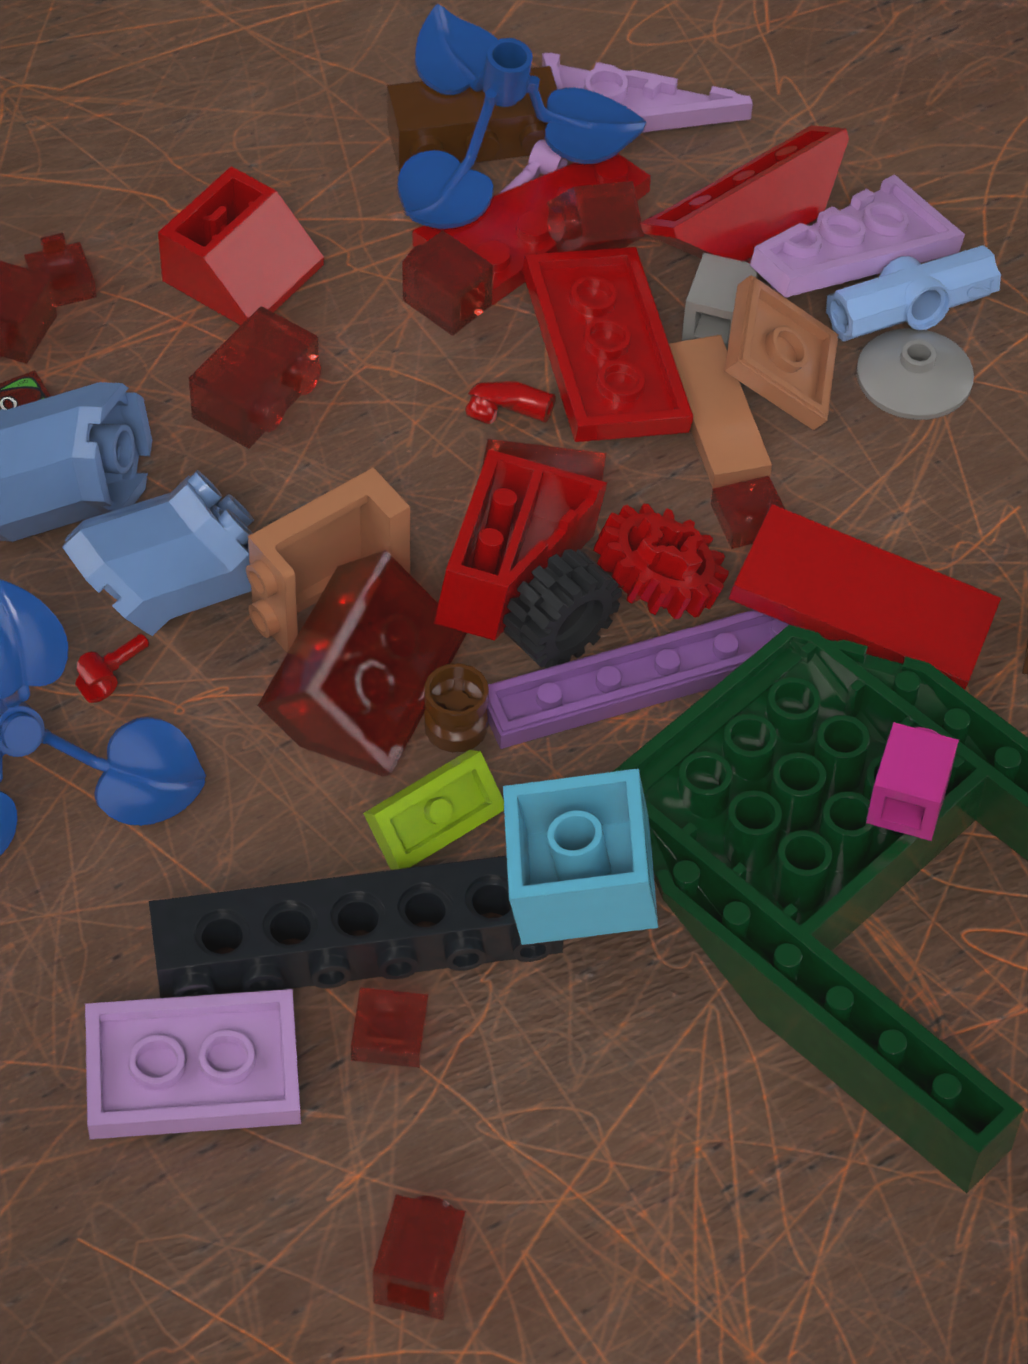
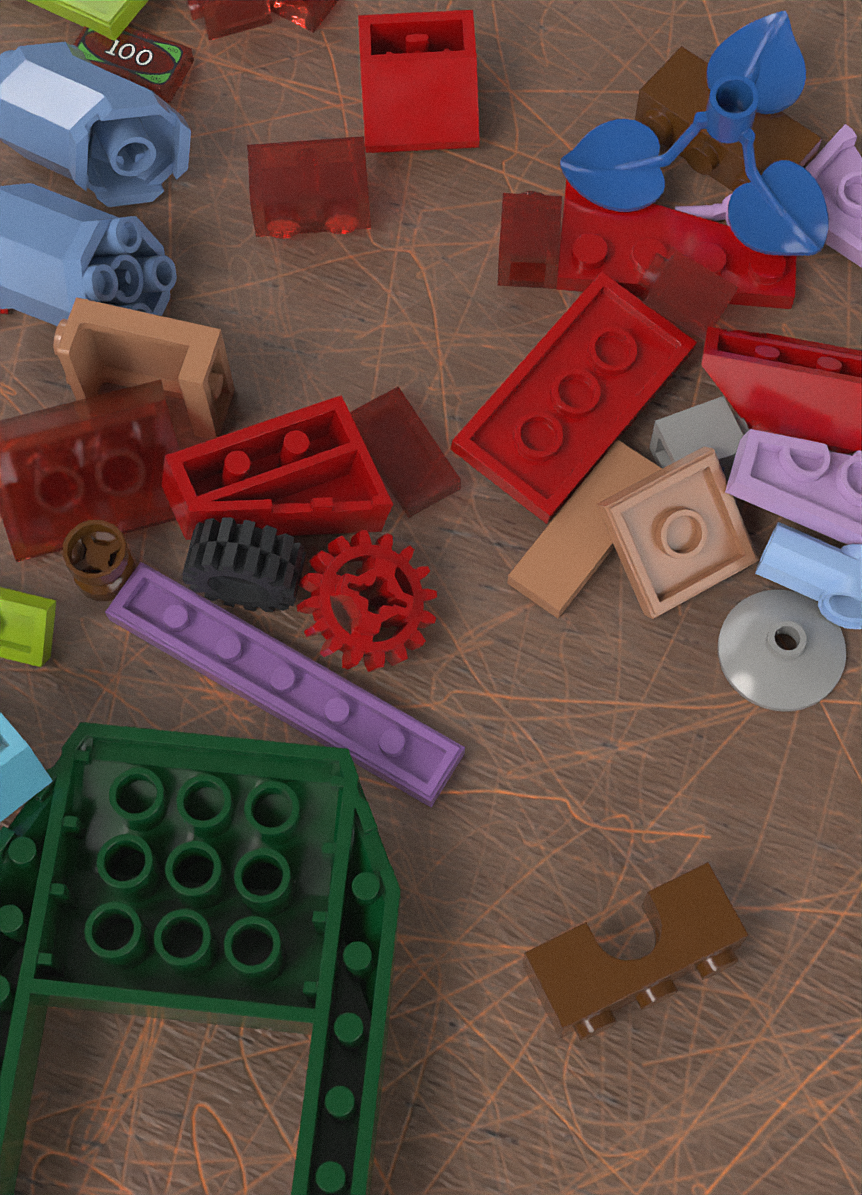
camera: 55 degrees right, 15 degrees up
(510, 395) = (463, 370): red arm -> none
(743, 508) = (501, 629): clear red plate -> none
(863, 595) = (470, 787): red tile -> none
(912, 781) = (232, 967): dark pink brick -> none

